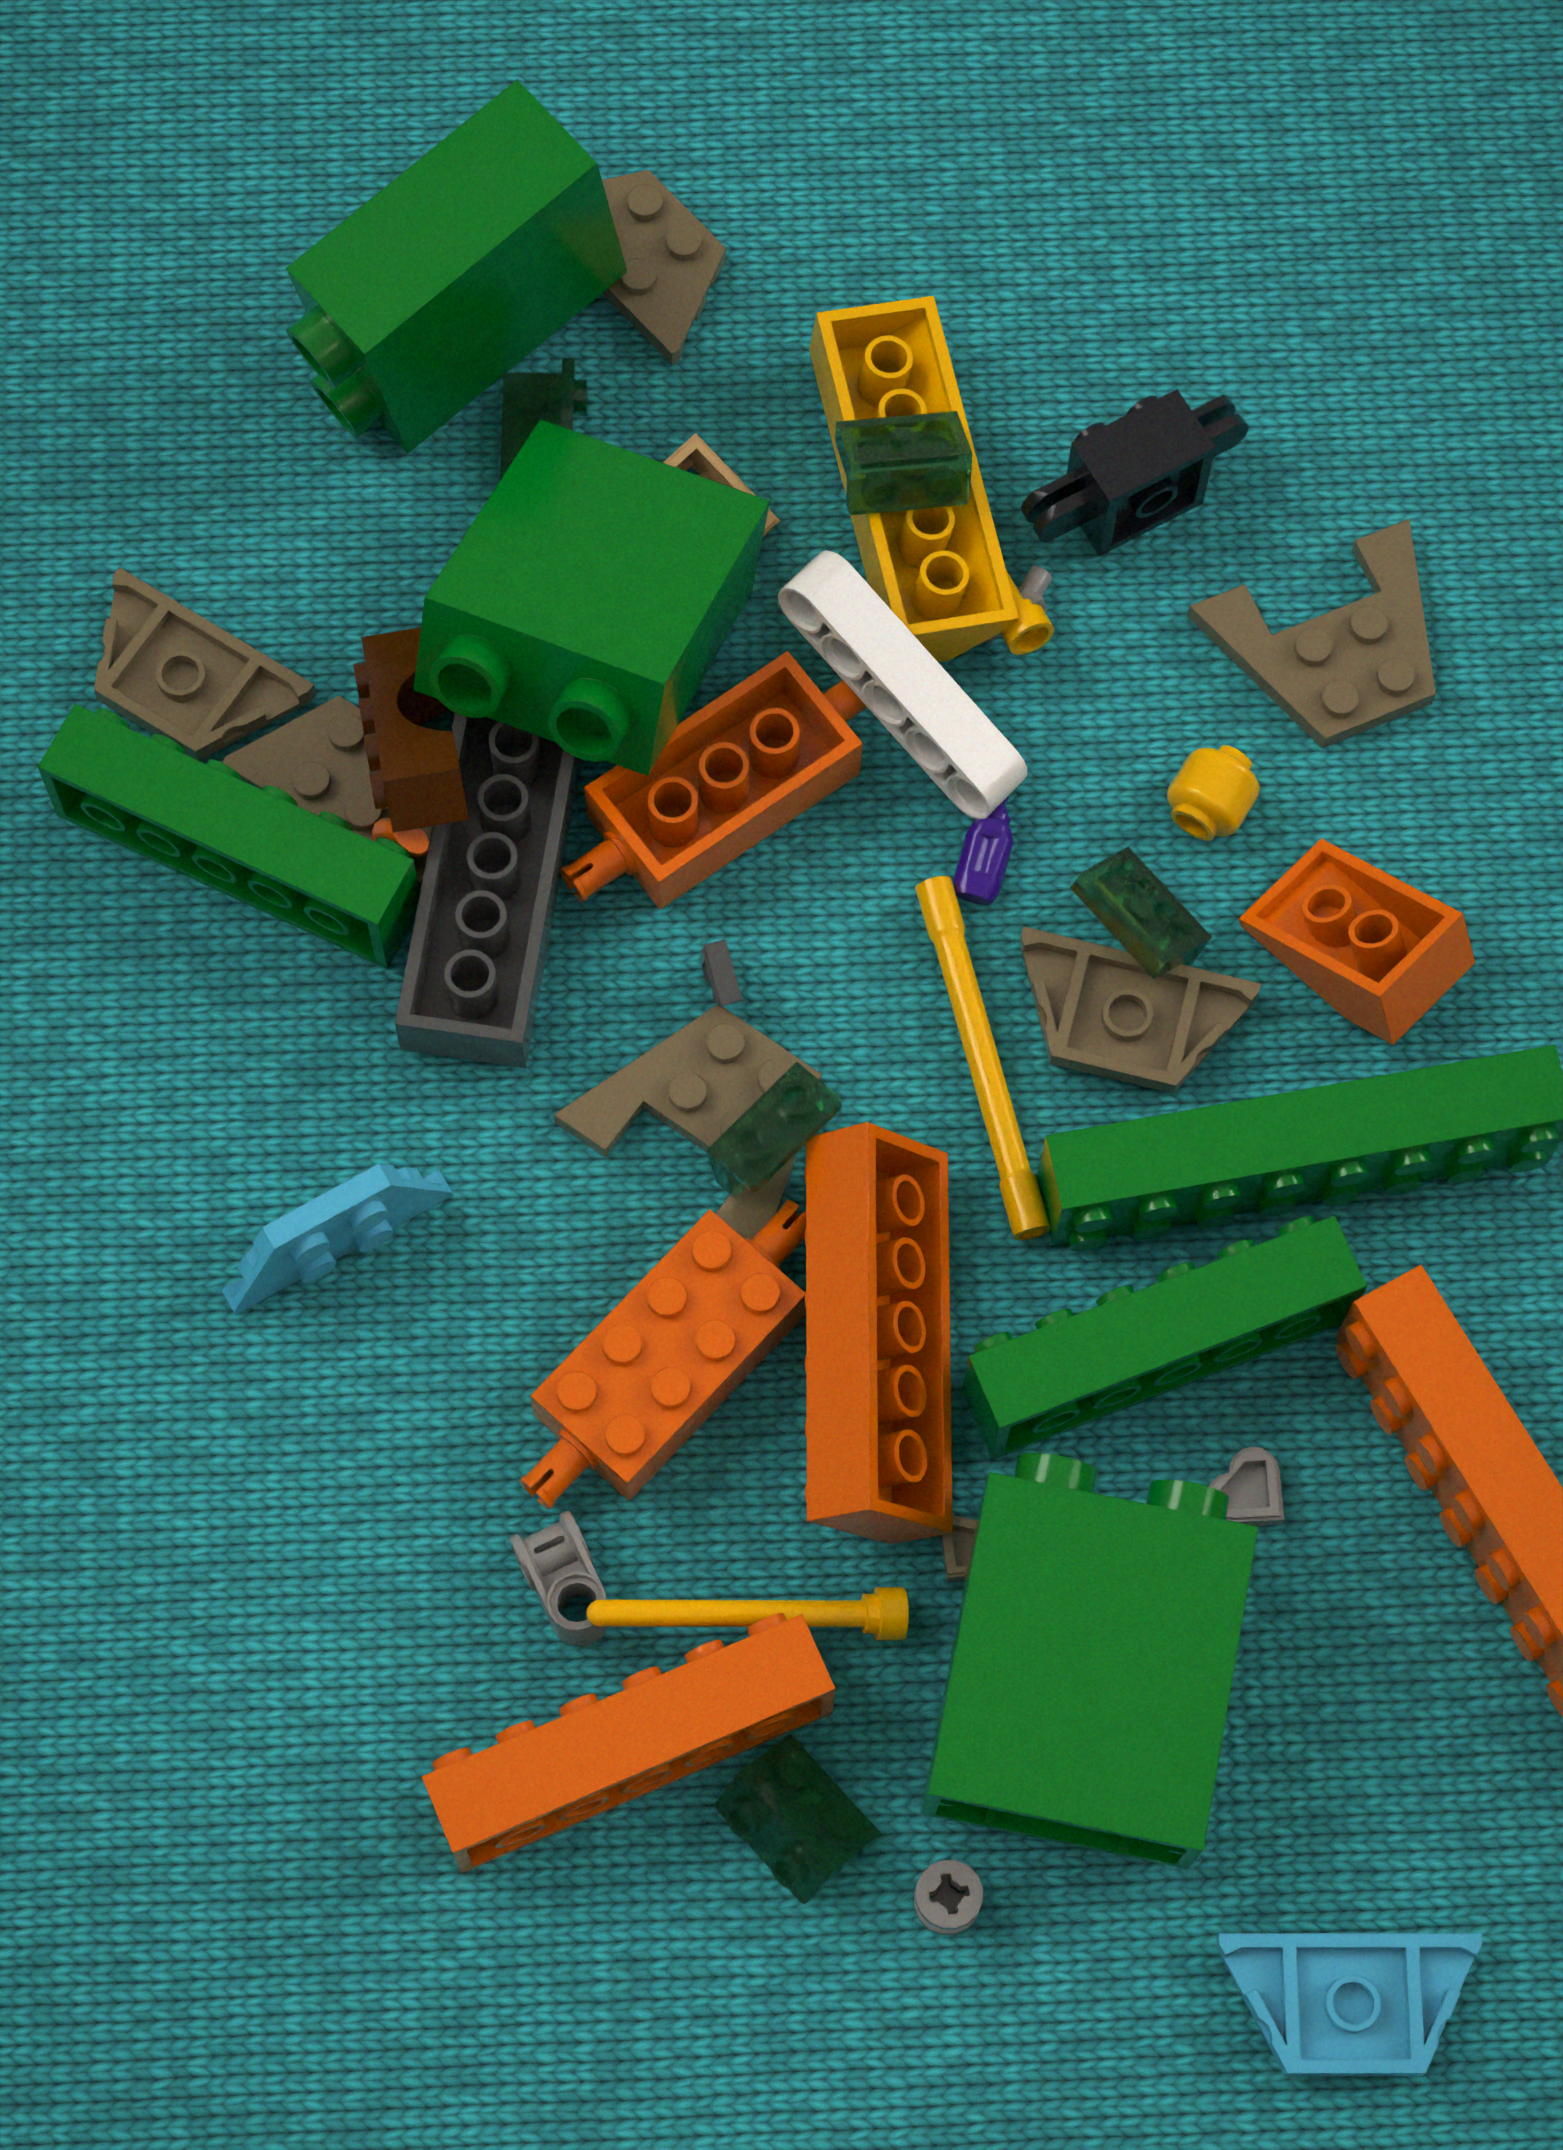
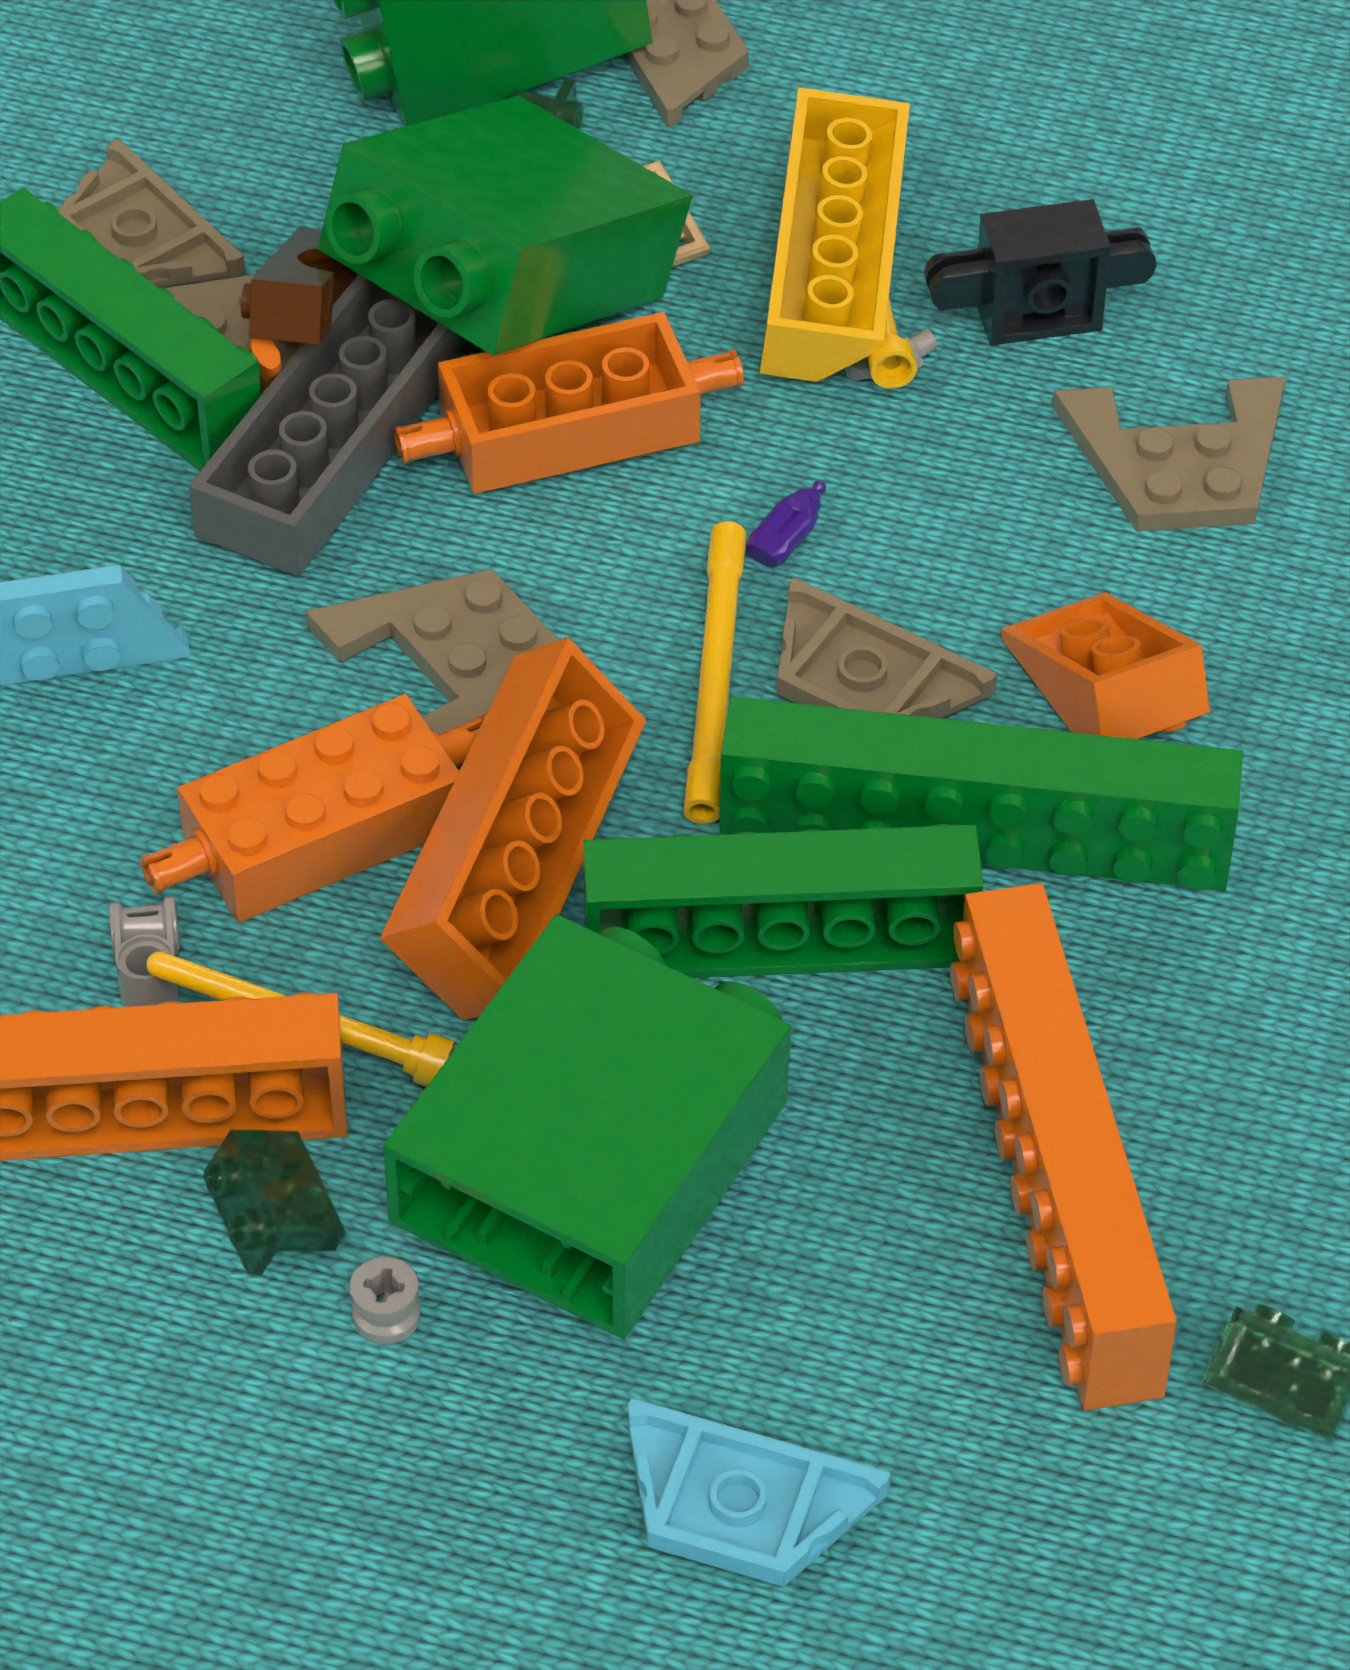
camera: 20 degrees right, 20 degrees down
(720, 973) = (502, 539): dark grey tile -> none
(772, 1131) = (479, 650): clear green bracket -> none
(902, 684) = (757, 362): white beam -> none
(905, 462) = (824, 200): clear green bracket -> none
(1141, 913) = (905, 585): clear green bracket -> none
(1213, 792) = (1013, 522): yellow head -> none
(1252, 1488) = (822, 1066): light grey tile -> none

